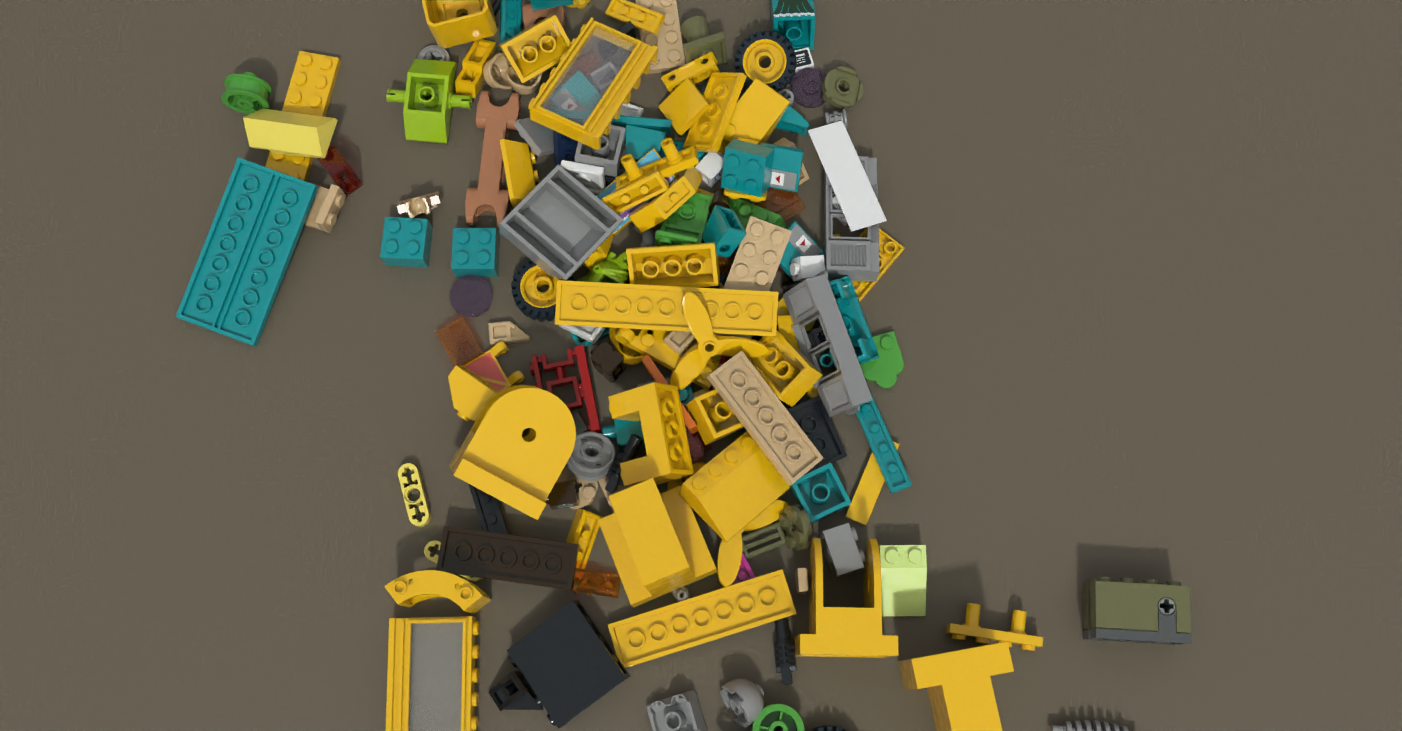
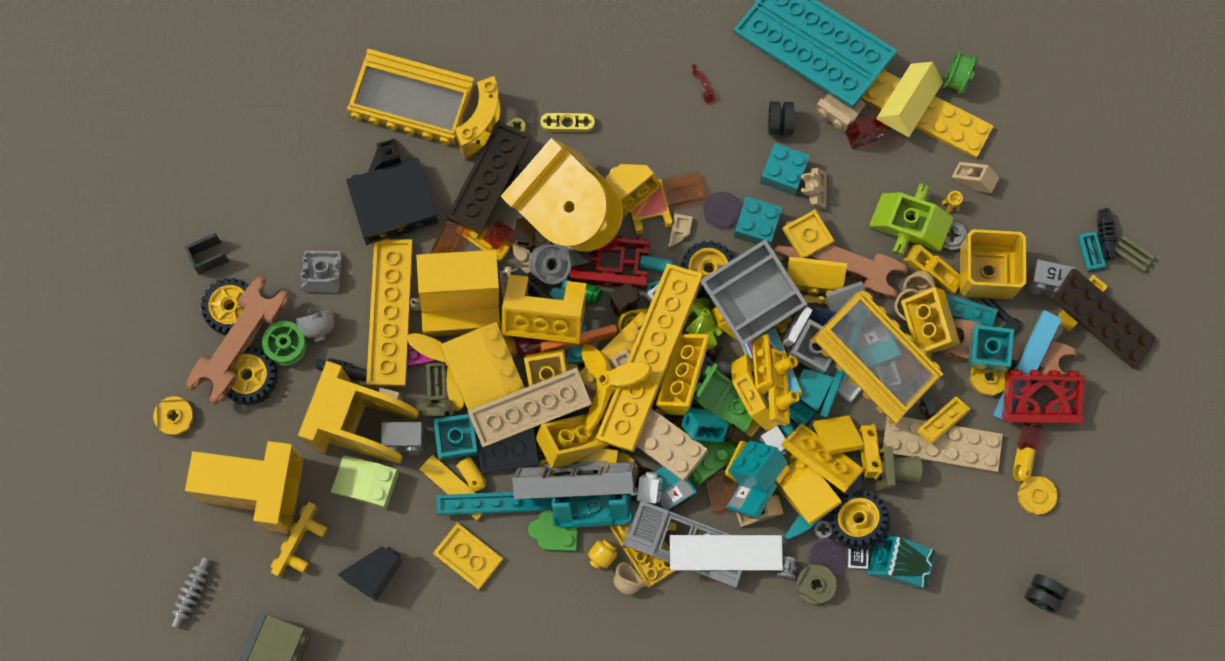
camera: 105 degrees right, 0 degrees up
(339, 349) = (708, 95): none -> clear red piece
(348, 260) = (781, 118): none -> pearl dark grey wheel
(361, 52) = (976, 176): none -> tan slope
(394, 64) = (953, 199): none -> yellow piece
(476, 194) = (808, 234): none -> yellow tile
(542, 166) = (812, 299): none -> yellow piece
(553, 343) = (654, 263): none -> teal cylinder
(572, 526) = (498, 234): none -> clear red bracket
(605, 415) = (593, 293): none -> green cone
(853, 464) = (472, 474): none -> yellow piece
(888, 301) = (602, 554): none -> yellow head
(906, 266) = (627, 579): none -> tan helmet
(939, 441) = (468, 556): none -> yellow tile
(1000, 533) = (373, 571): none -> black slope

